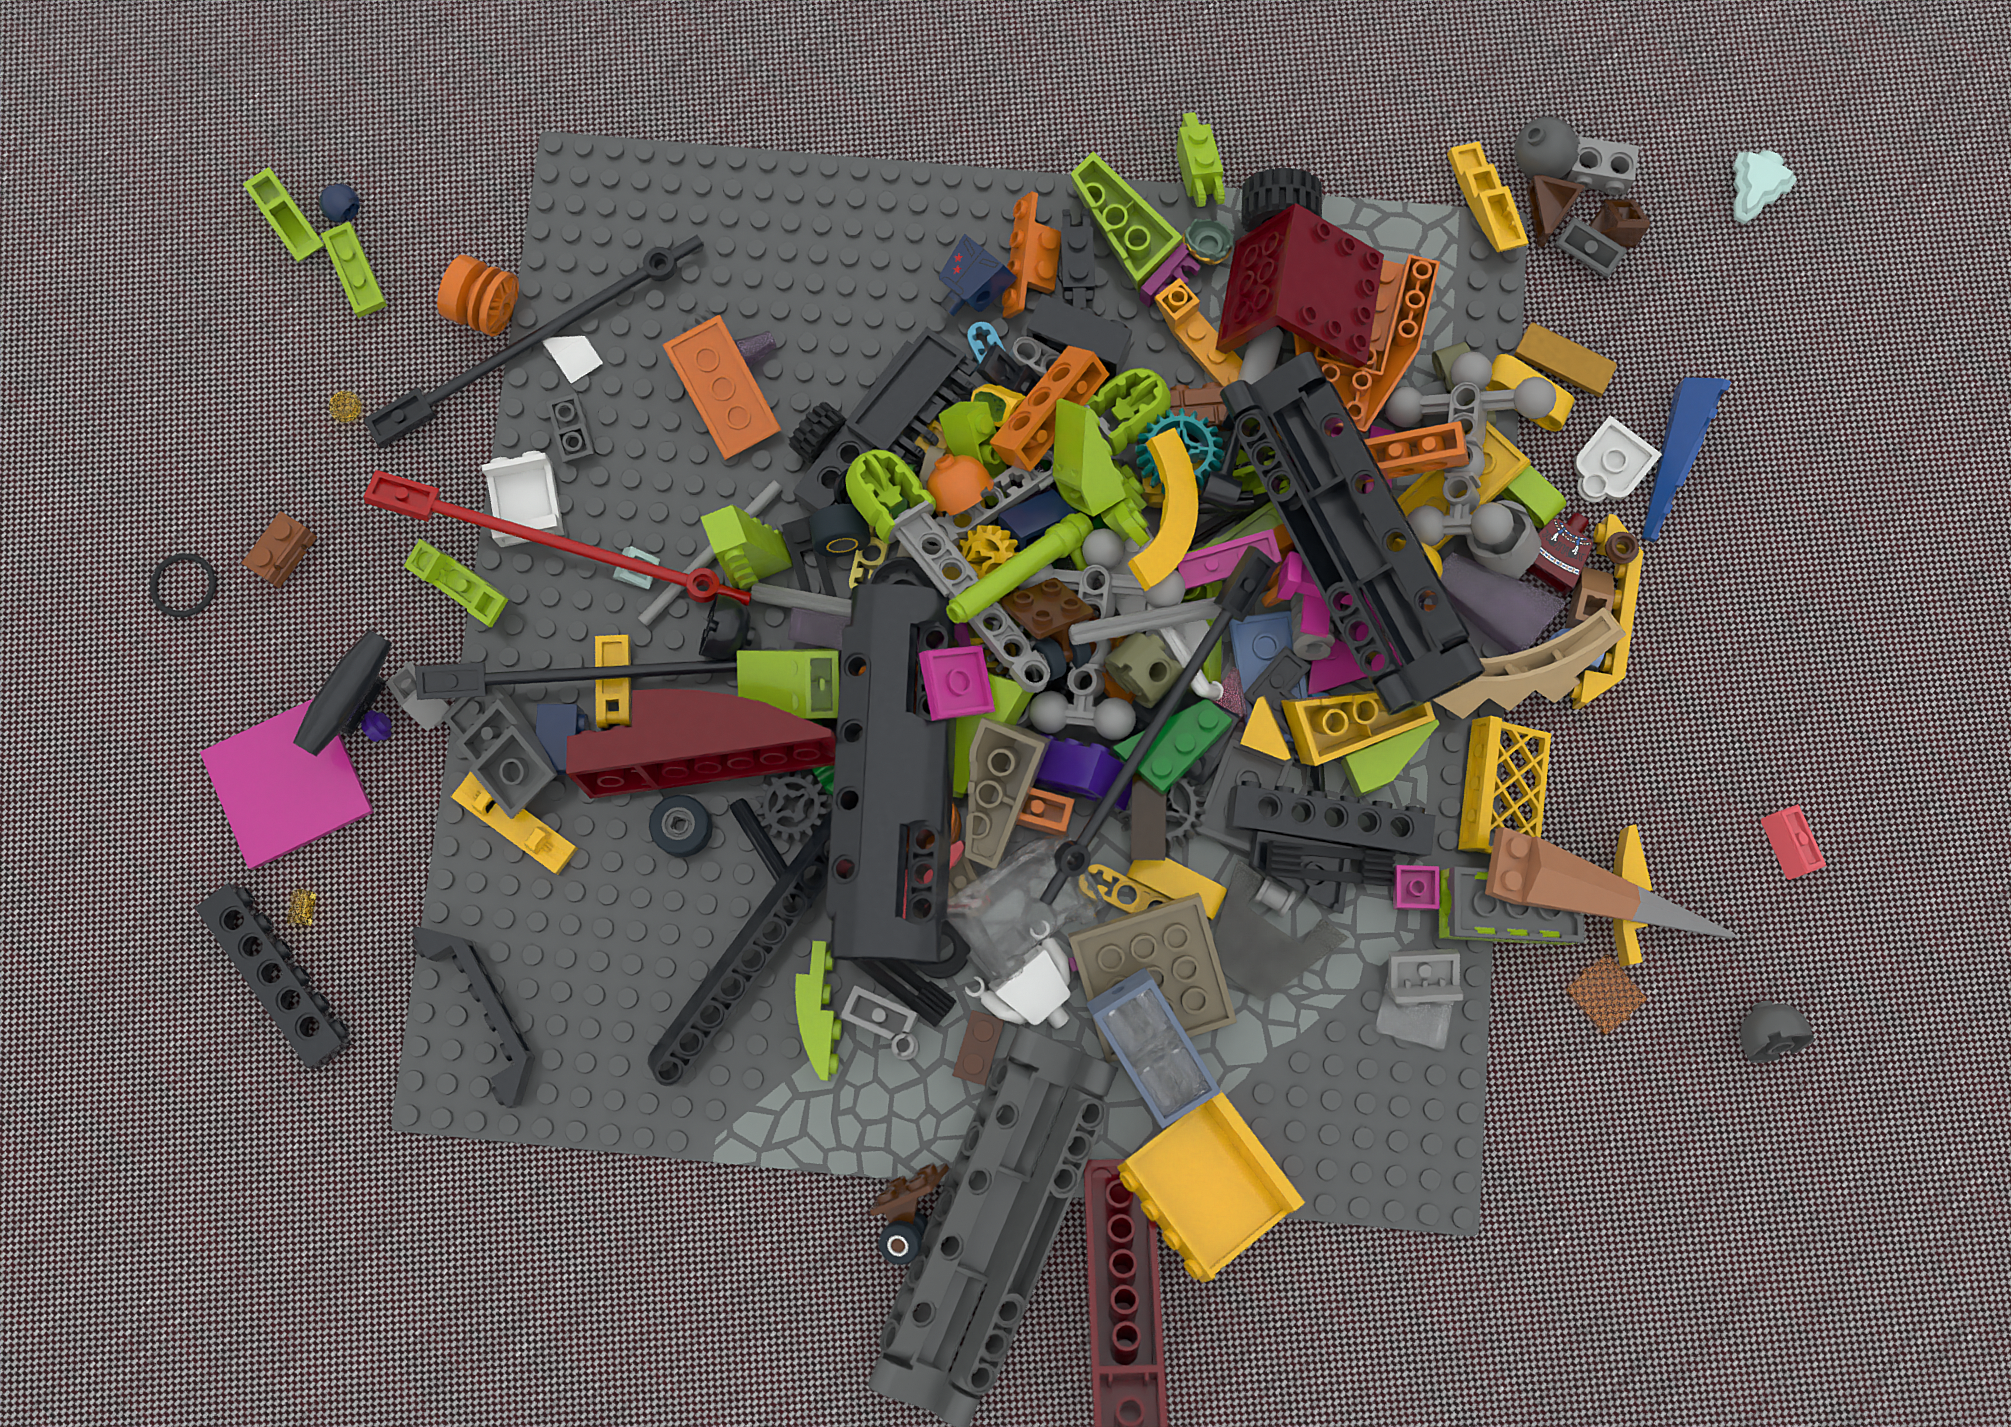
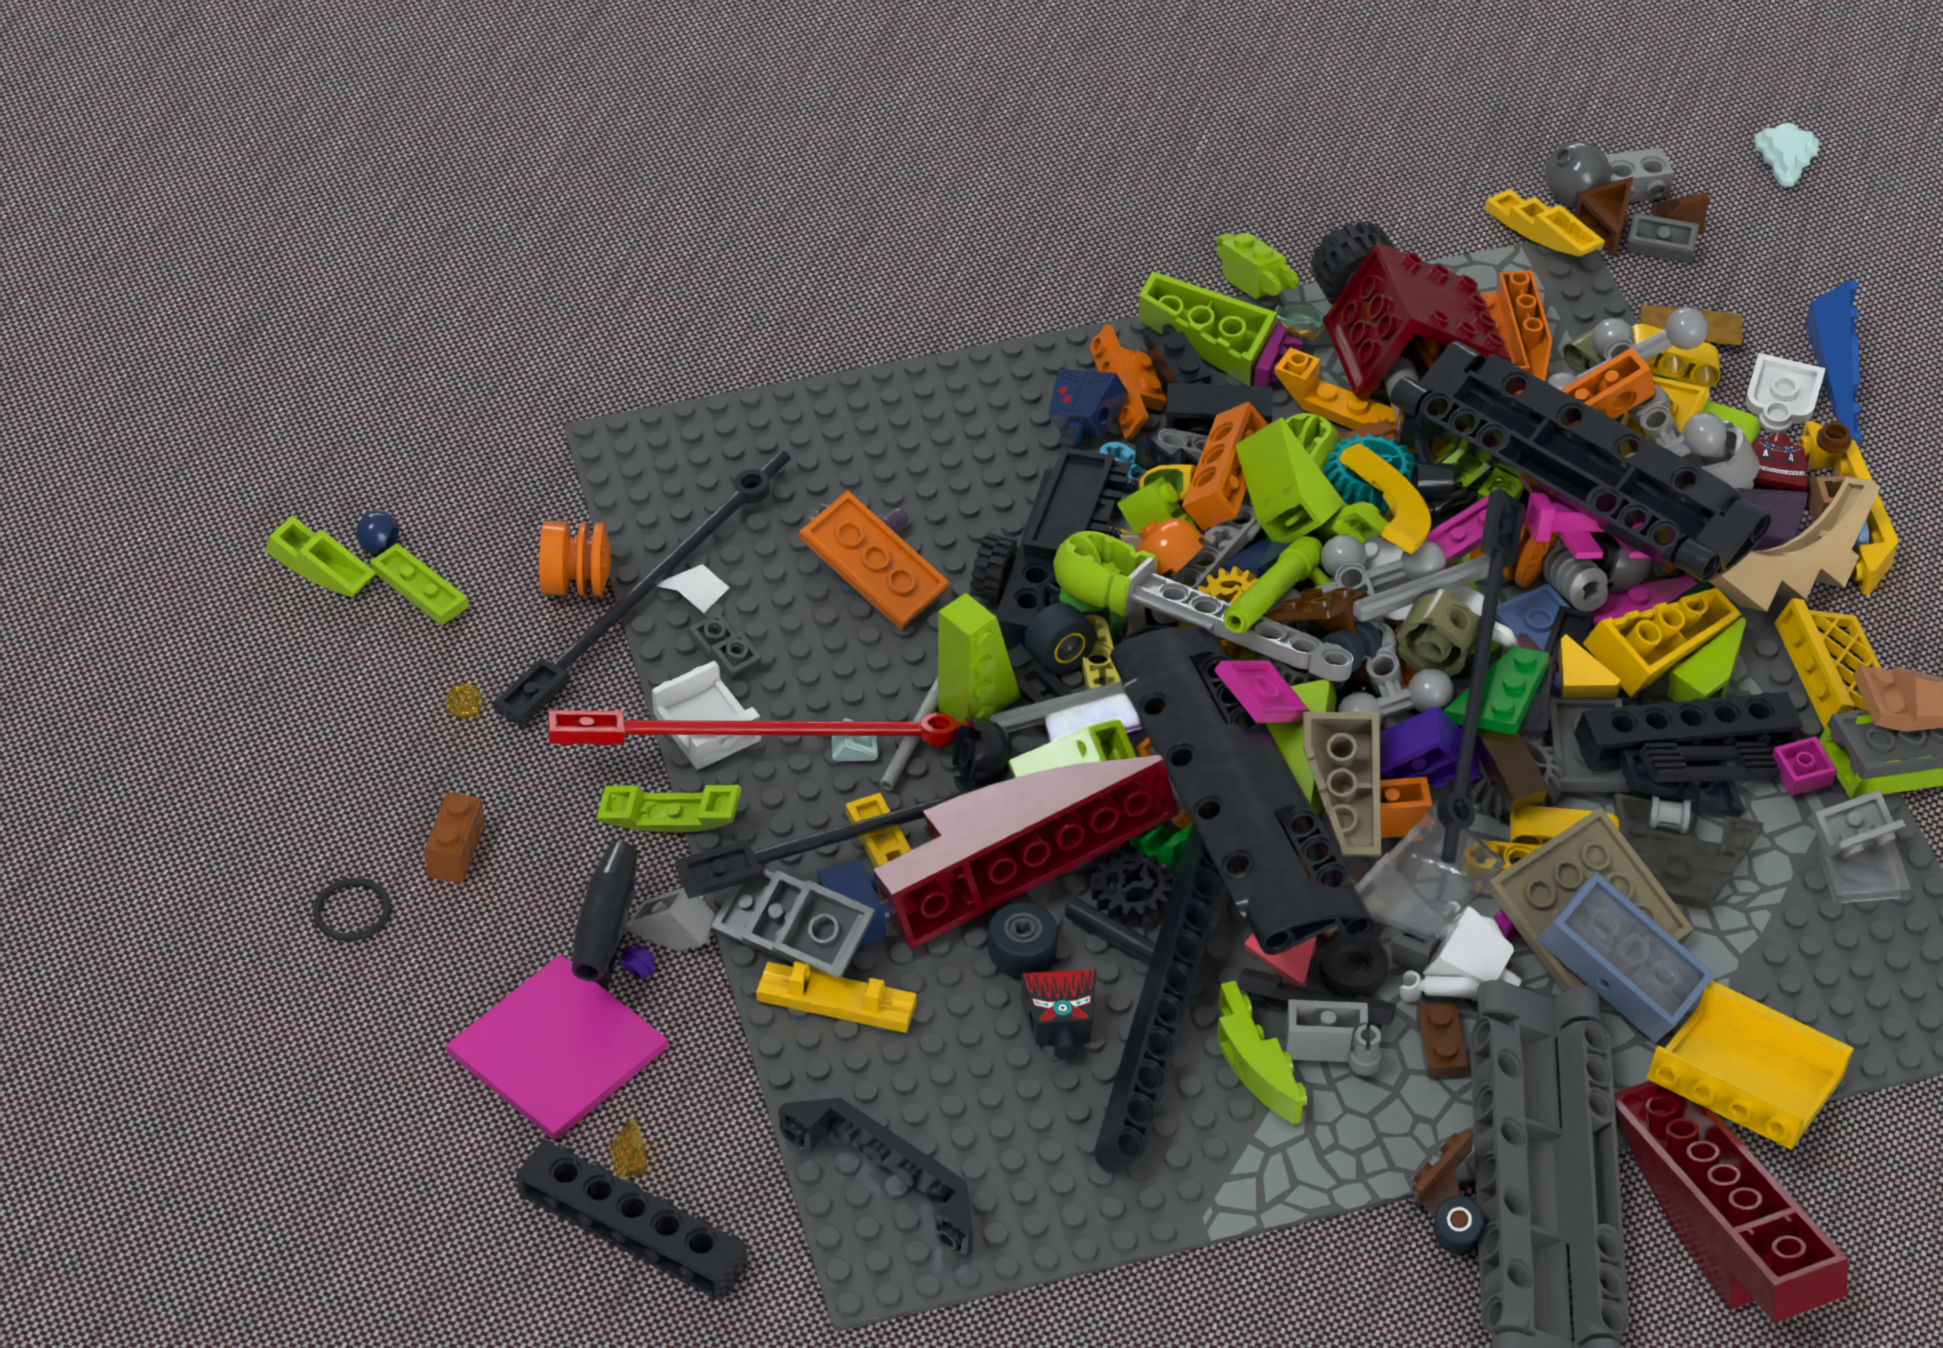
camera: 25 degrees left, 30 degrees down
(681, 908) = (1060, 1008): none -> torso

